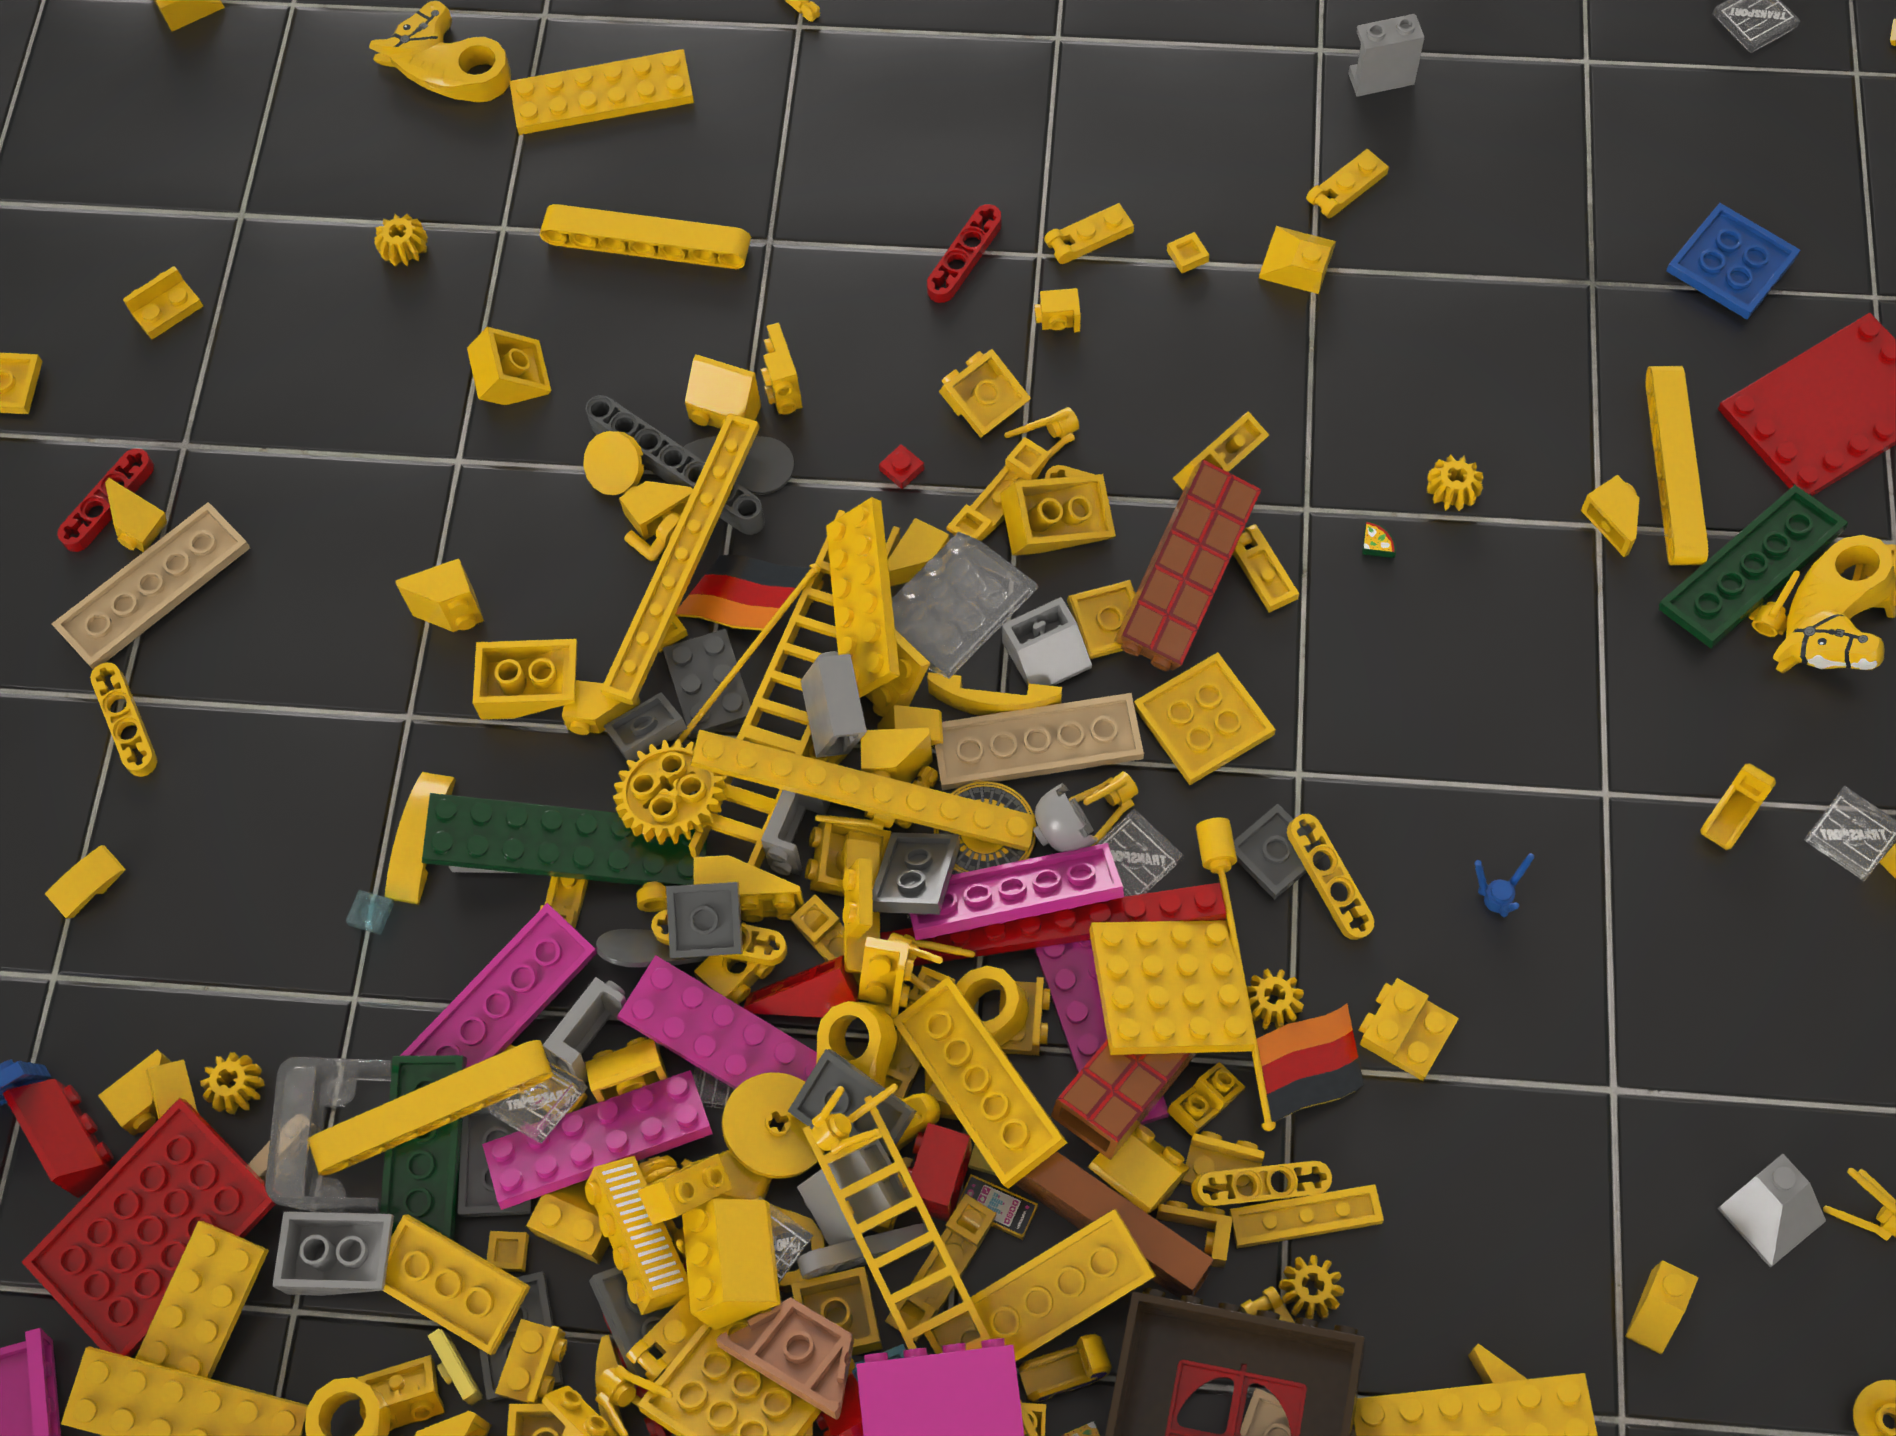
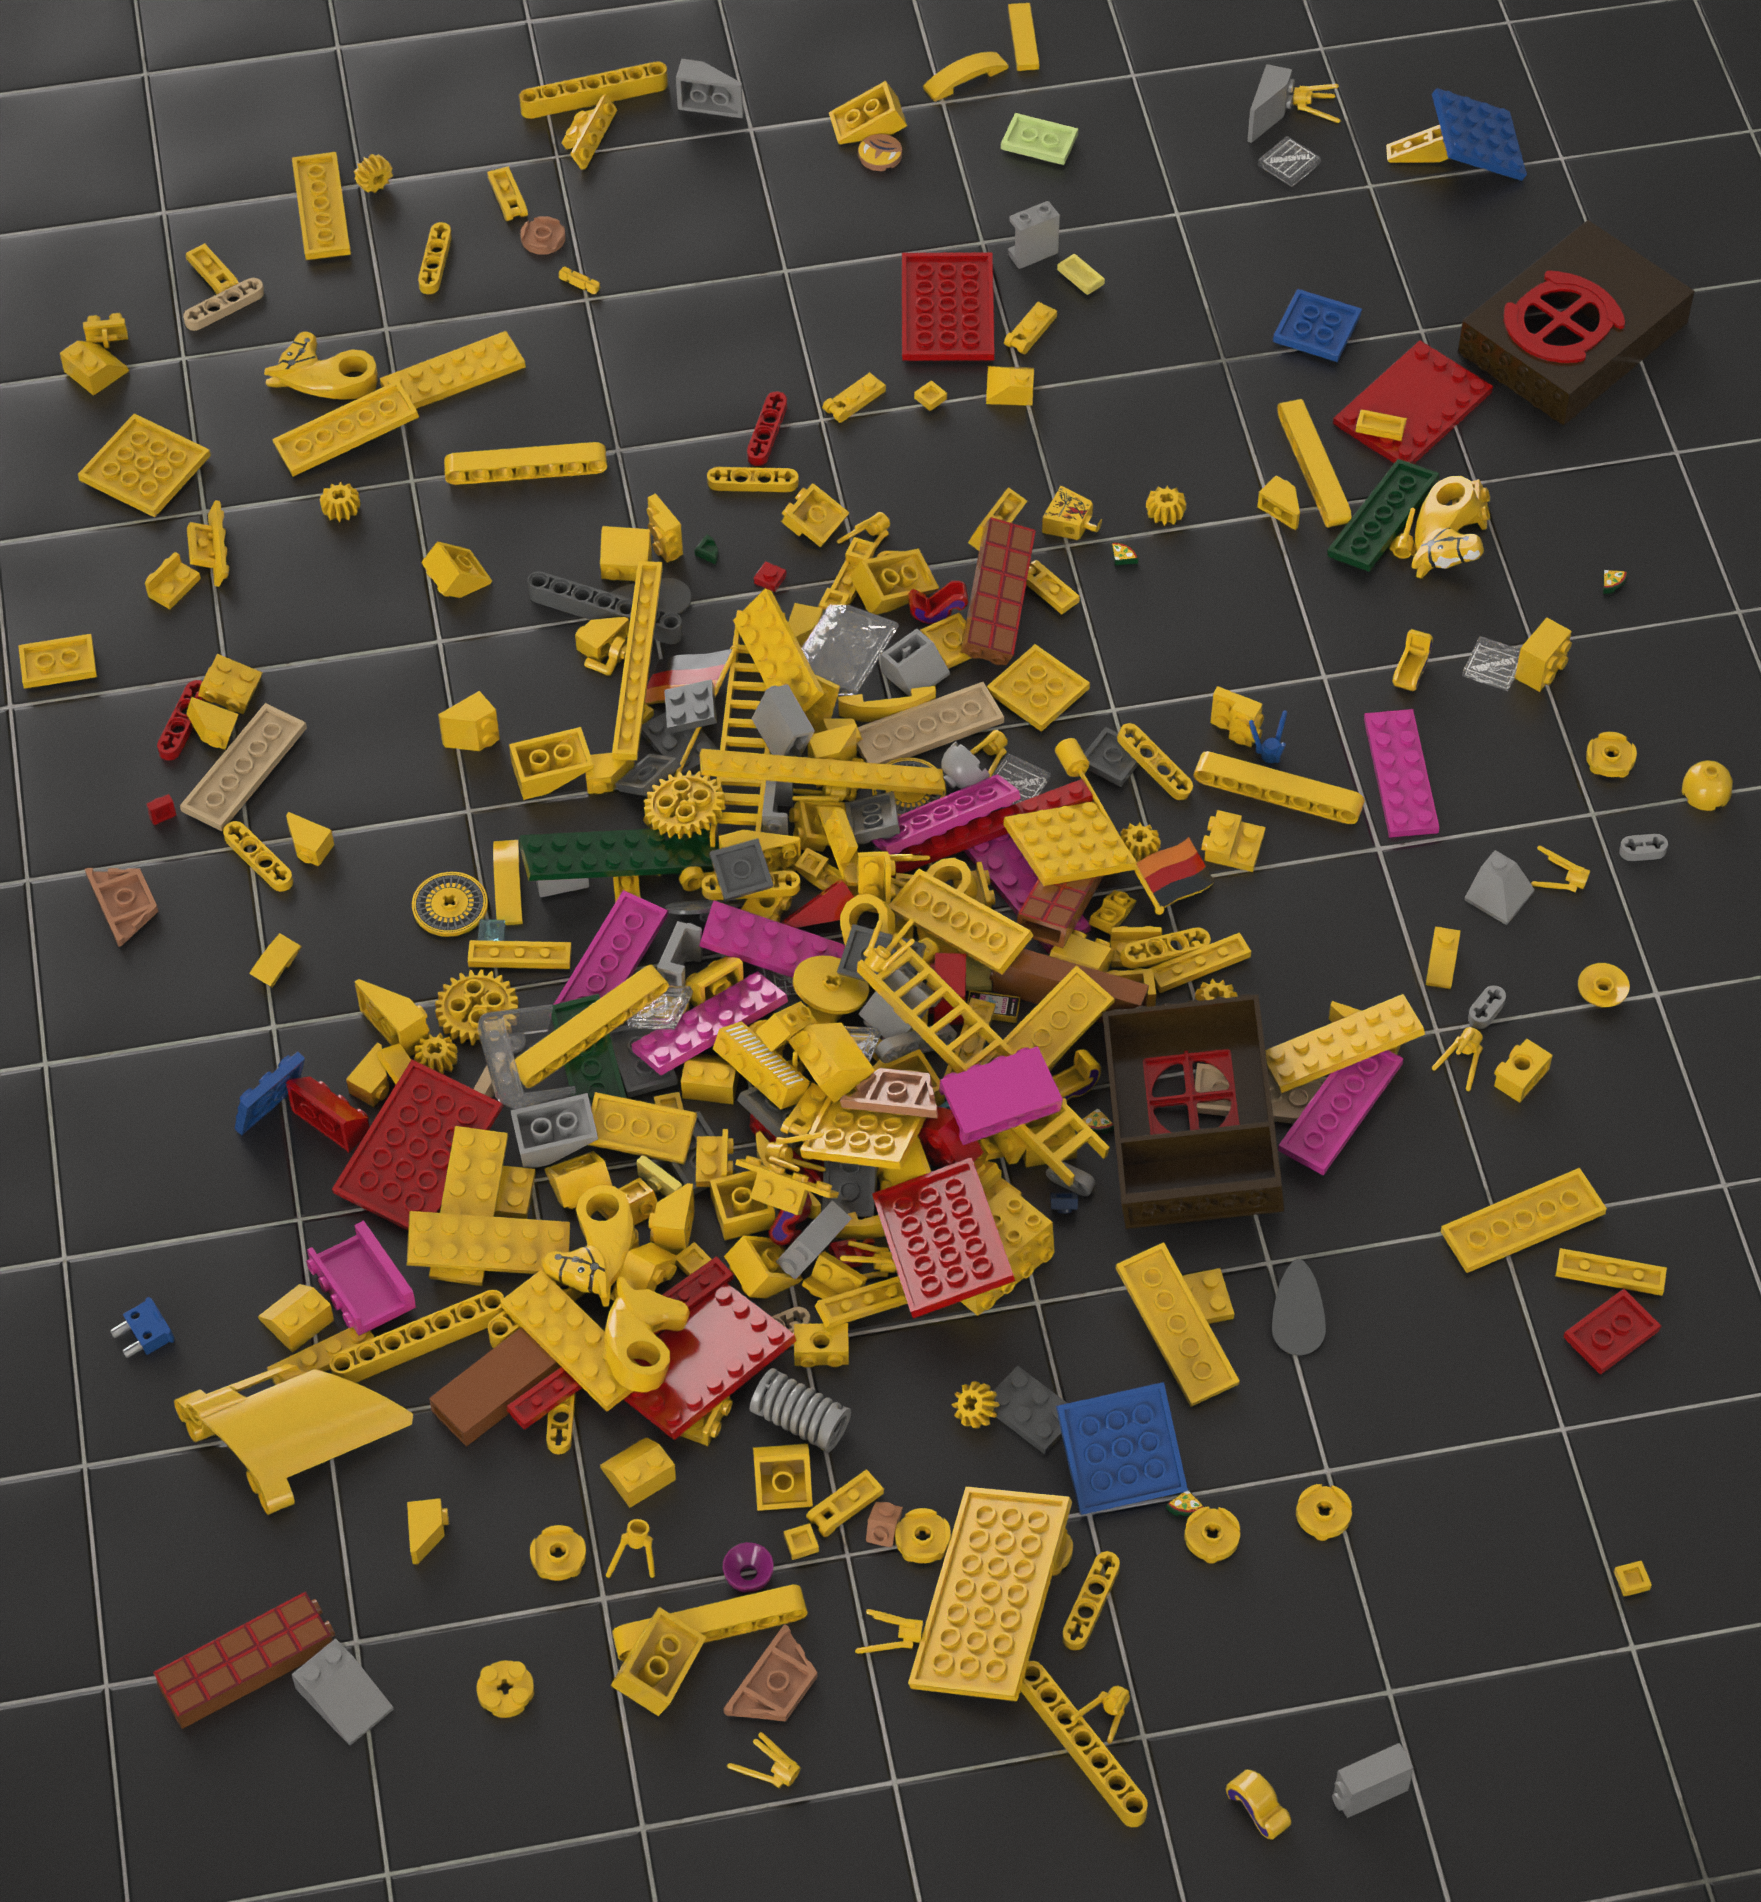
camera: 20 degrees left, 10 degrees down
(28, 622) = (161, 809): none -> red plate
(175, 464) = (229, 684): none -> yellow plate
(189, 714) = (309, 839): none -> yellow slope
(190, 138) = (144, 465): none -> yellow plate
(192, 1025) = (393, 1015): none -> yellow slope
(219, 263) = (207, 544): none -> yellow bracket
(262, 1326) = (515, 1192): none -> yellow plate
(294, 999) = (472, 1005): none -> yellow gear
(313, 867) = (450, 920): none -> piece
(348, 1335) = (576, 1176): none -> yellow slope
(394, 955) = (519, 954): none -> yellow plate
(441, 141) = (345, 428): none -> yellow plate
(613, 462) = (560, 614): yellow tile -> none
(730, 640) = (690, 706): none -> plate
(835, 408) = (707, 549): none -> dark green tile
(921, 326) = (752, 482): none -> yellow beam
(1058, 309) = (850, 451): yellow brick -> none
(1104, 564) = (940, 604): none -> red animal
(1247, 131) = (947, 306): none -> red plate
(1320, 468) = (1069, 515): none -> yellow torso
(1434, 121) = (1080, 274): none -> light yellow plate
(1466, 834) = (1233, 713): none -> yellow plate
(1496, 960) = (1279, 787): none -> yellow beam
(1676, 978) = (1401, 773): none -> dark pink plate
(1713, 1411) = (1491, 1010): none -> light grey beam
(1784, 430) = (1381, 425): none -> yellow tile

